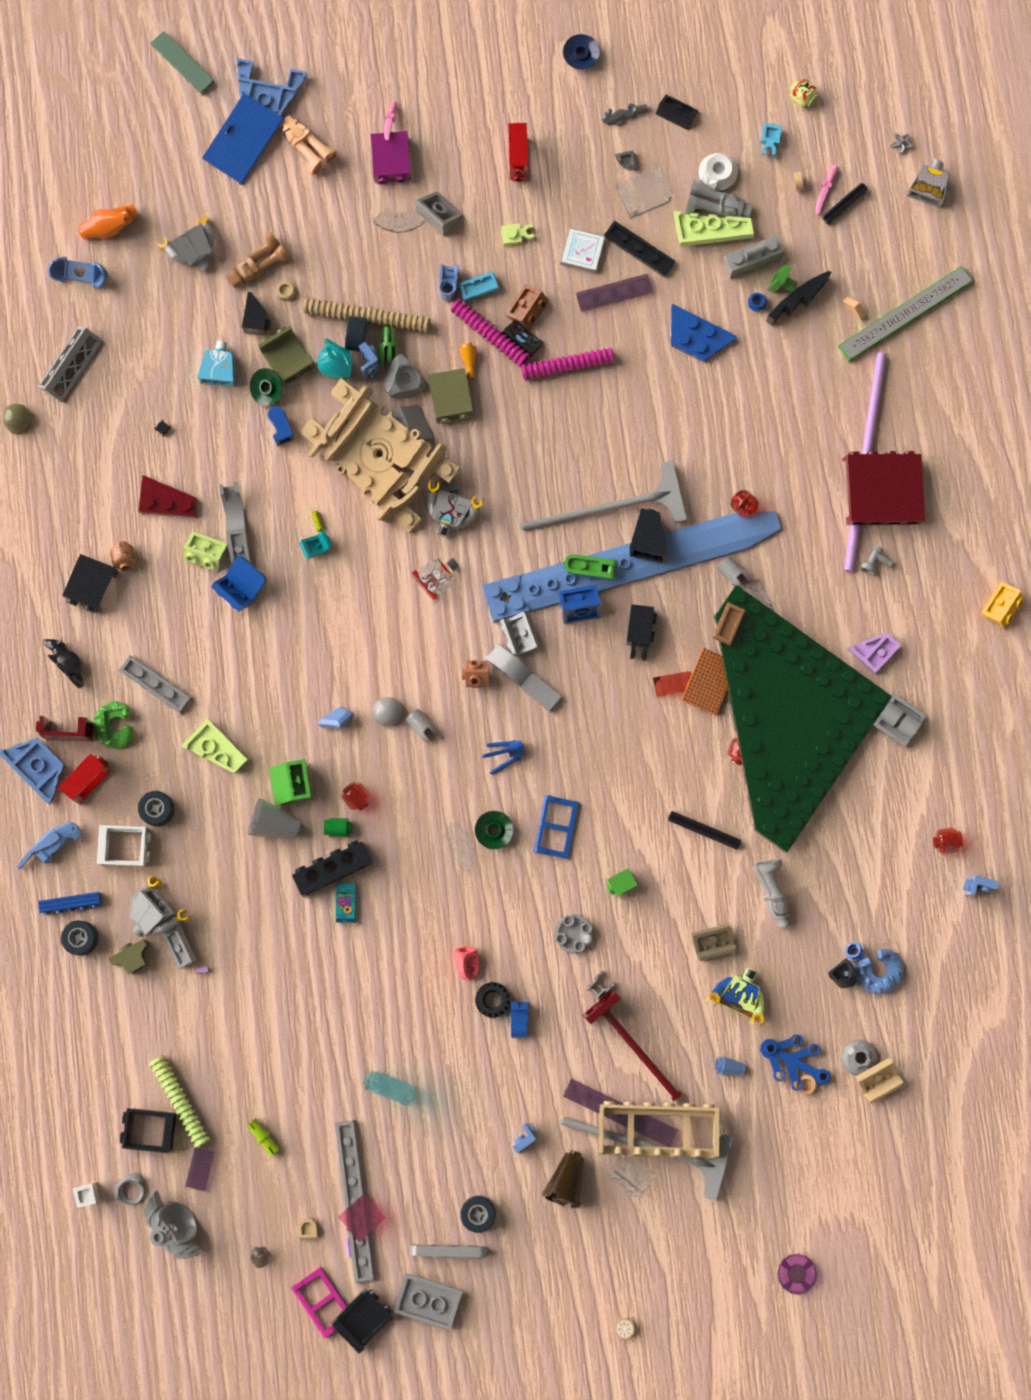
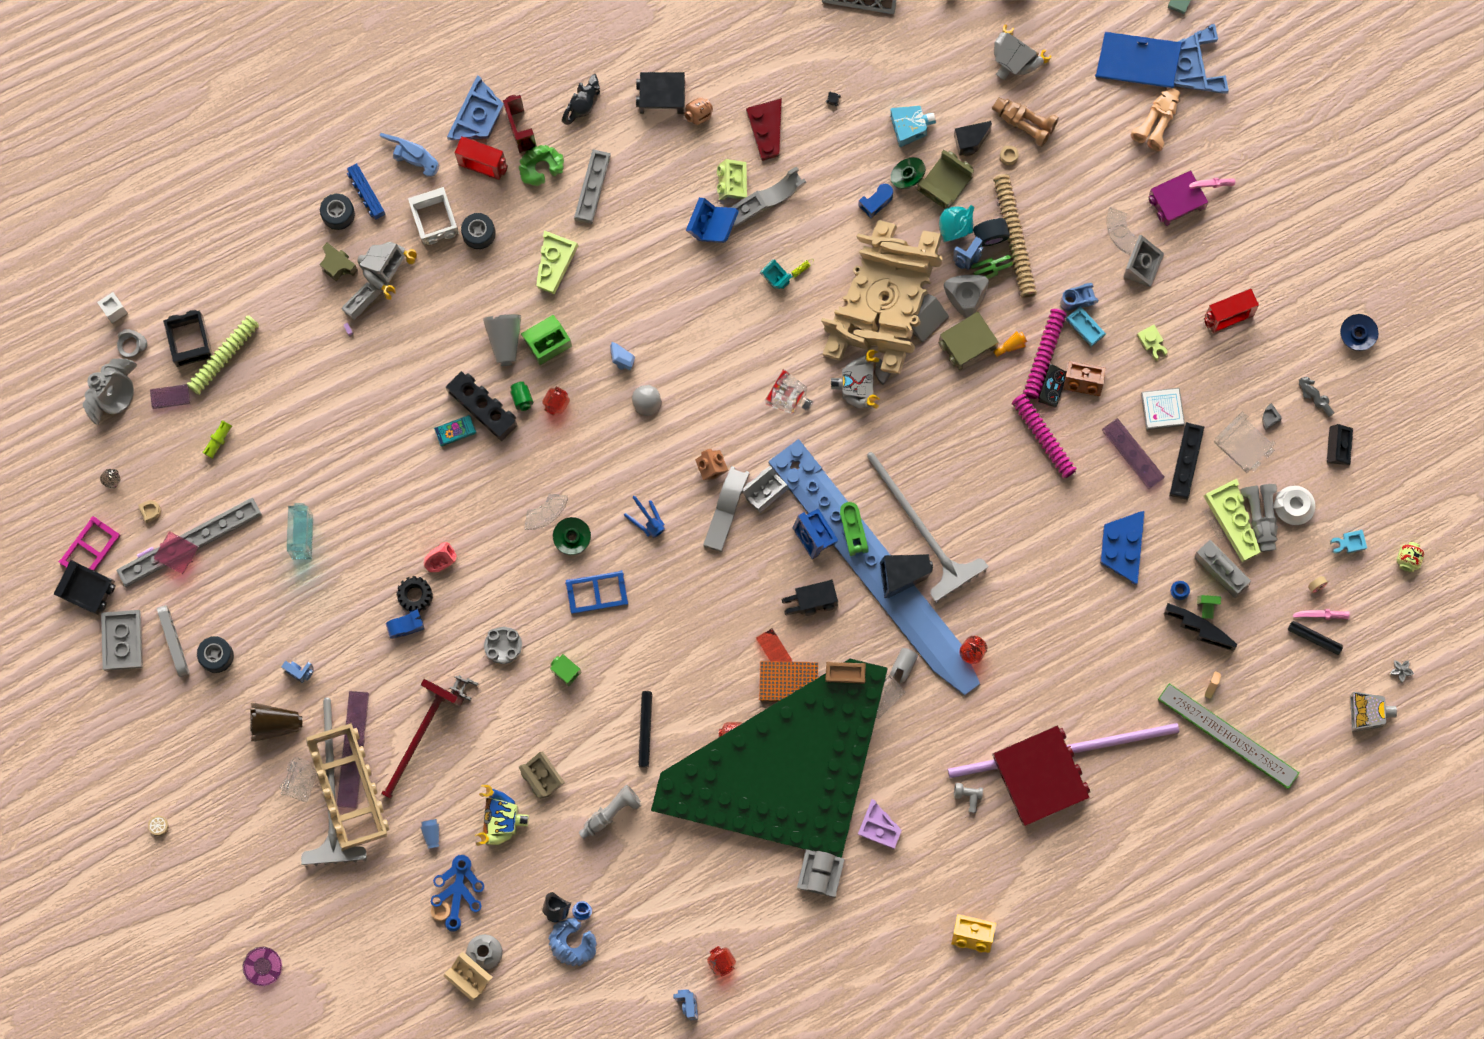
camera: 70 degrees right, 5 degrees down
(420, 723) = (646, 432): light grey piece -> none

